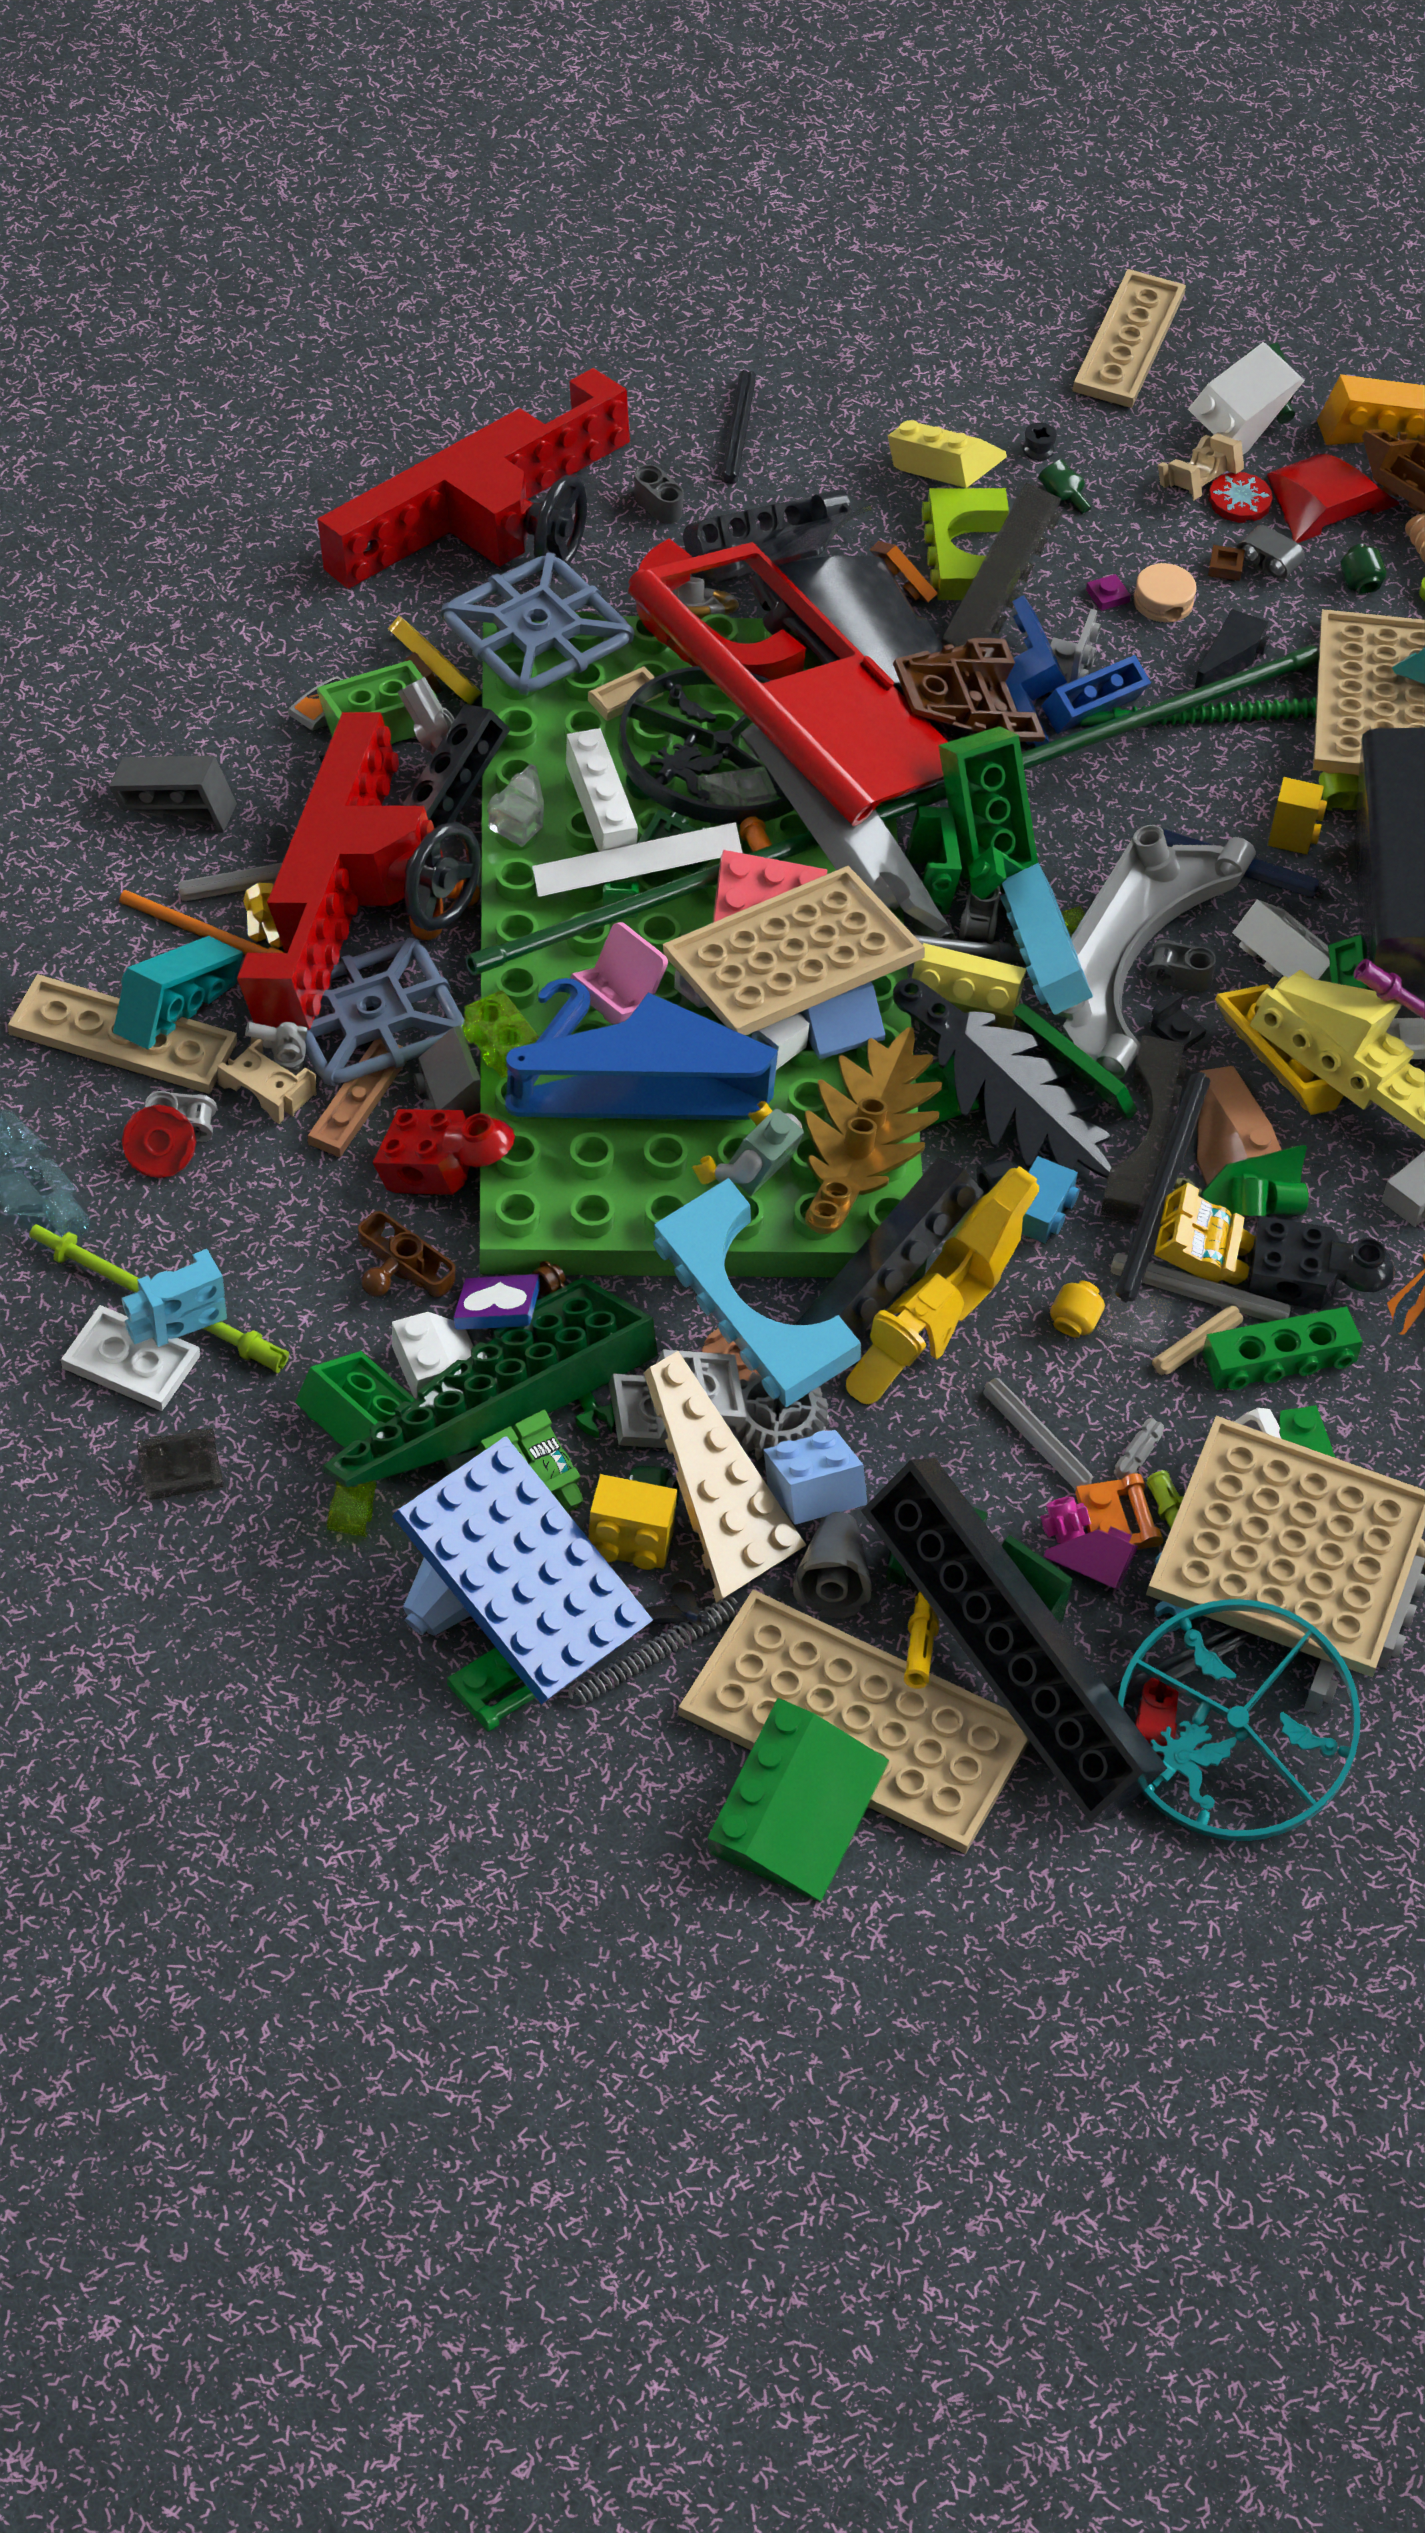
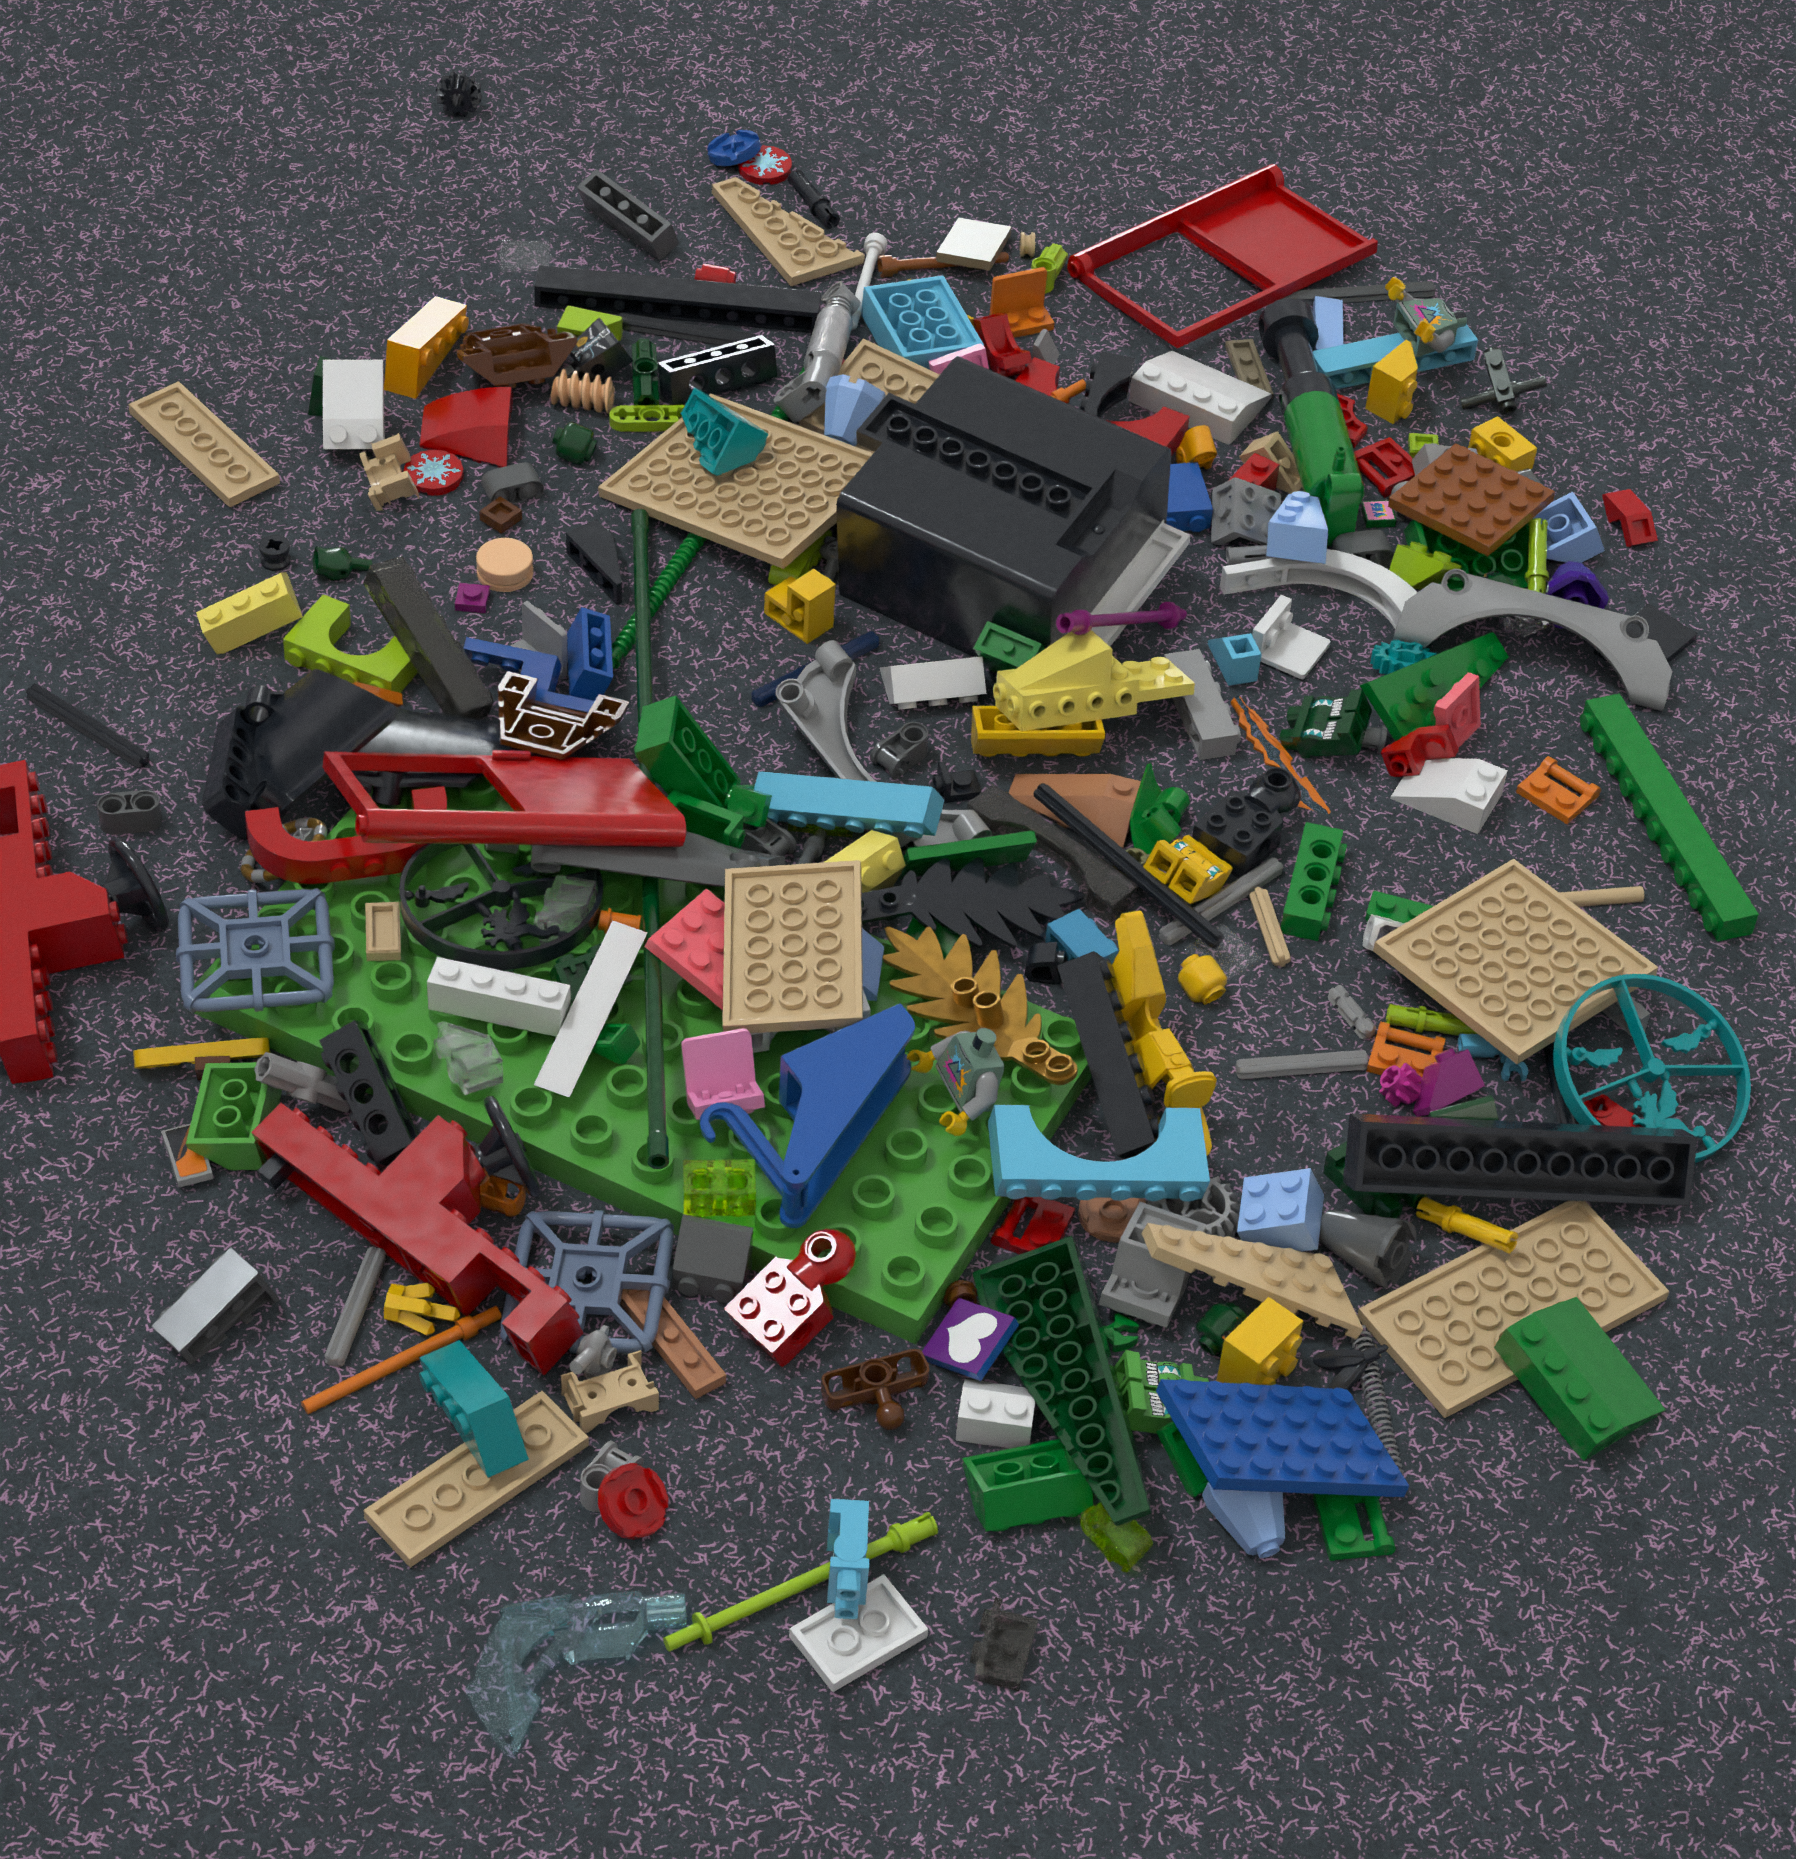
camera: 60 degrees left, 5 degrees down
(673, 1313) = (1045, 1227): none -> red plate

